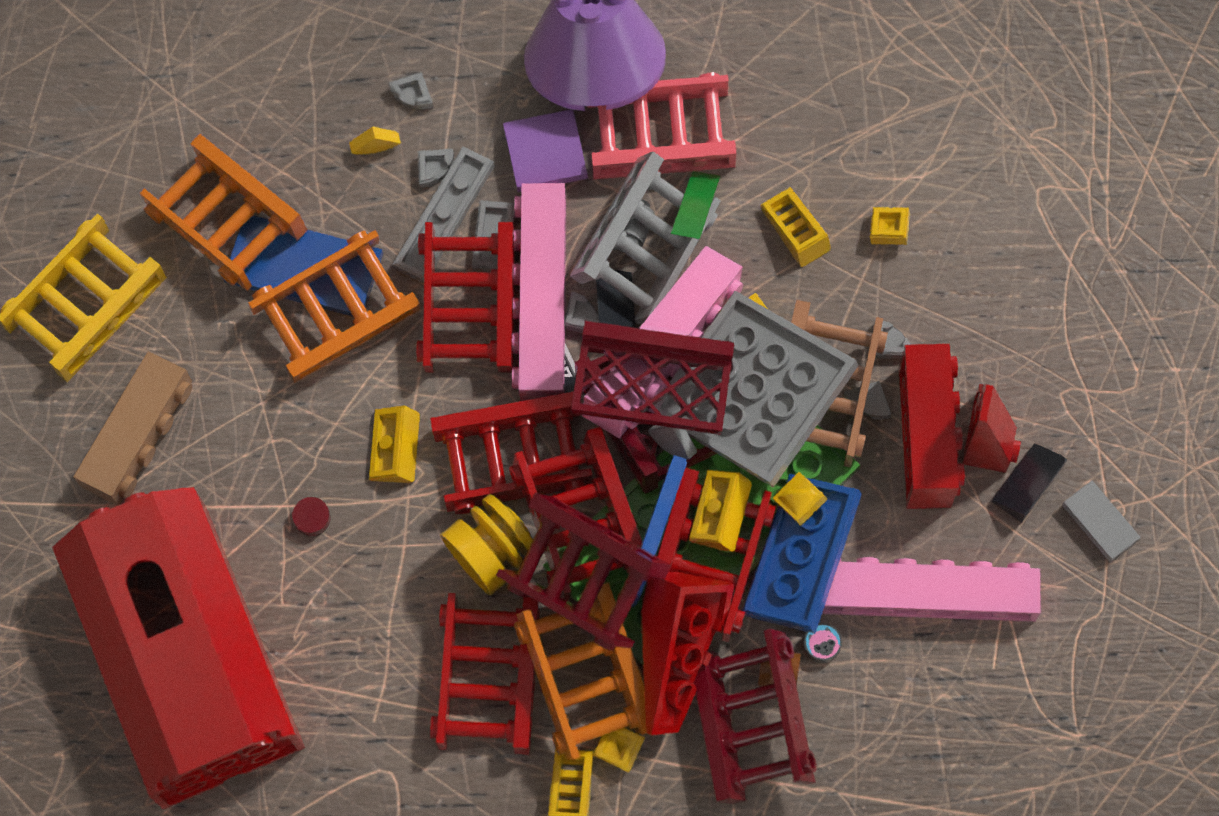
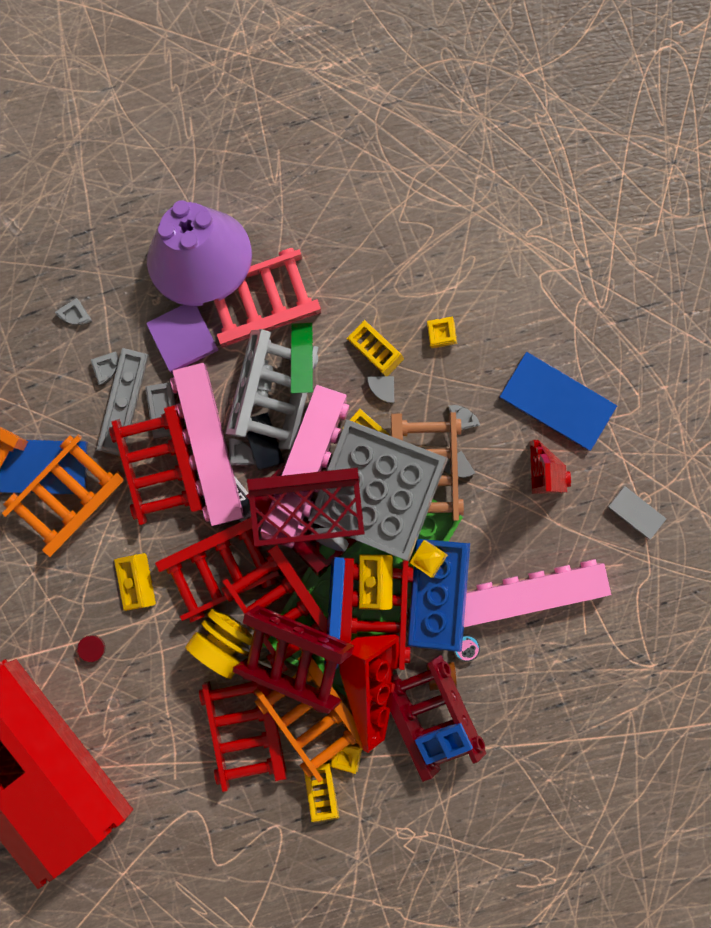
camera: 20 degrees left, 15 degrees up
(374, 141) = (57, 359): yellow tile -> none
(759, 746) = (443, 743): none -> blue slope
(793, 277) = (382, 387): none -> light grey tile
(929, 426) = (505, 480): red brick -> none
(1025, 351) = (558, 401): none -> blue tile
(1029, 481) = (581, 497): black slope -> none

